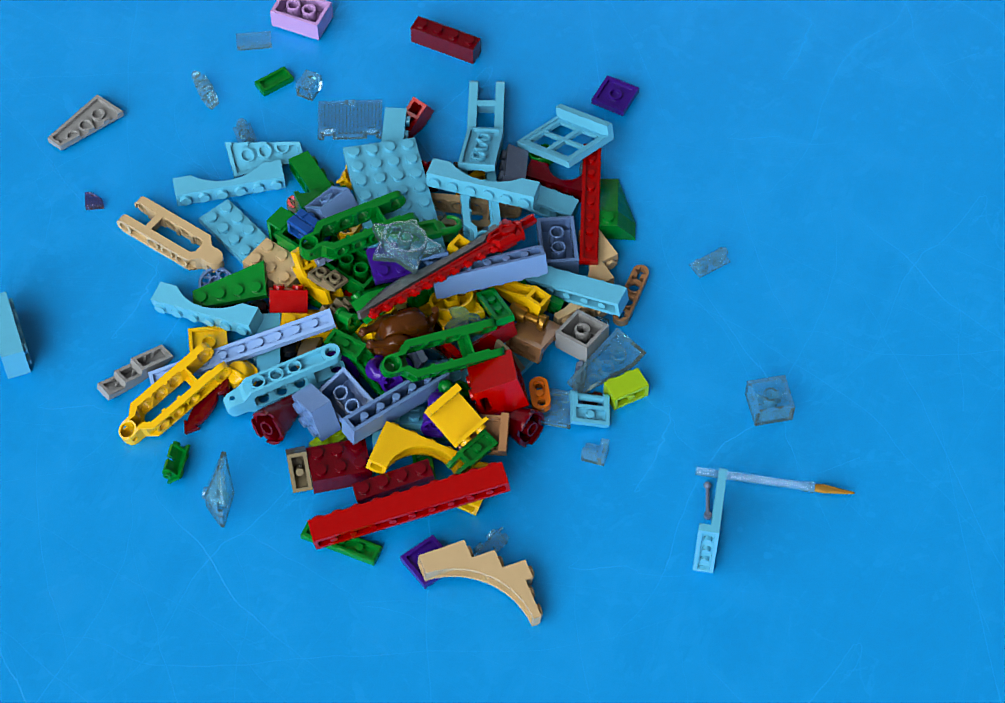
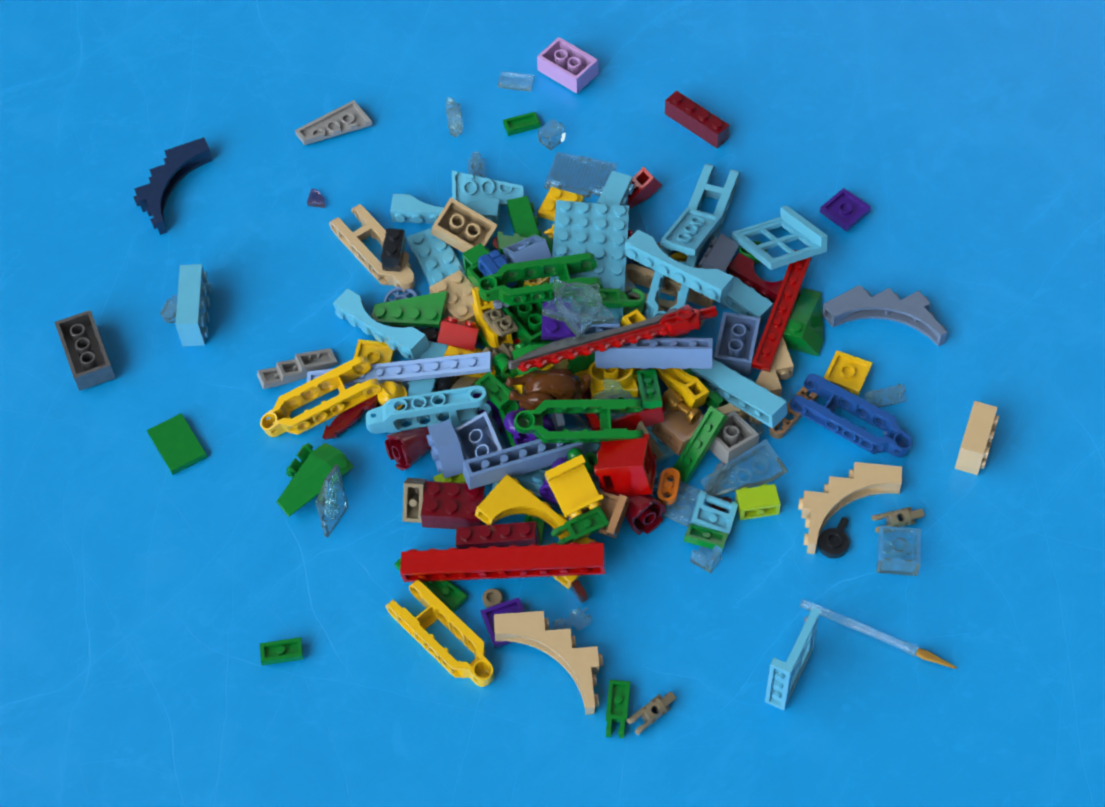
camera: 20 degrees right, 0 degrees up
(39, 475) = (176, 443): none -> green tile
(192, 472) = (310, 477): none -> green wedge
(195, 233) = (393, 250): none -> black brick
(219, 646) = (281, 651): none -> green plate
(255, 195) = (462, 227): none -> tan brick
(333, 152) = (548, 207): none -> yellow plate
(356, 567) = (479, 670): none -> yellow piece
(406, 542) = (492, 597): none -> dark tan tile
(487, 514) = (579, 591): none -> tile
(556, 346) = (699, 443): none -> green plate
(560, 610) = (617, 705): none -> green hinge
(588, 433) = (705, 537): none -> green plate
(594, 606) = (659, 706): none -> dark tan hinge
(666, 272) = (892, 442): none -> blue piece
(668, 248) = (848, 372): none -> yellow plate
(683, 177) = (885, 305): none -> sand blue arch
(697, 360) = (863, 481): none -> tan arch
(707, 408) = (833, 541): none -> black piece
(759, 371) = (906, 516): none -> dark tan hinge
(807, 280) = (977, 438): none -> tan brick

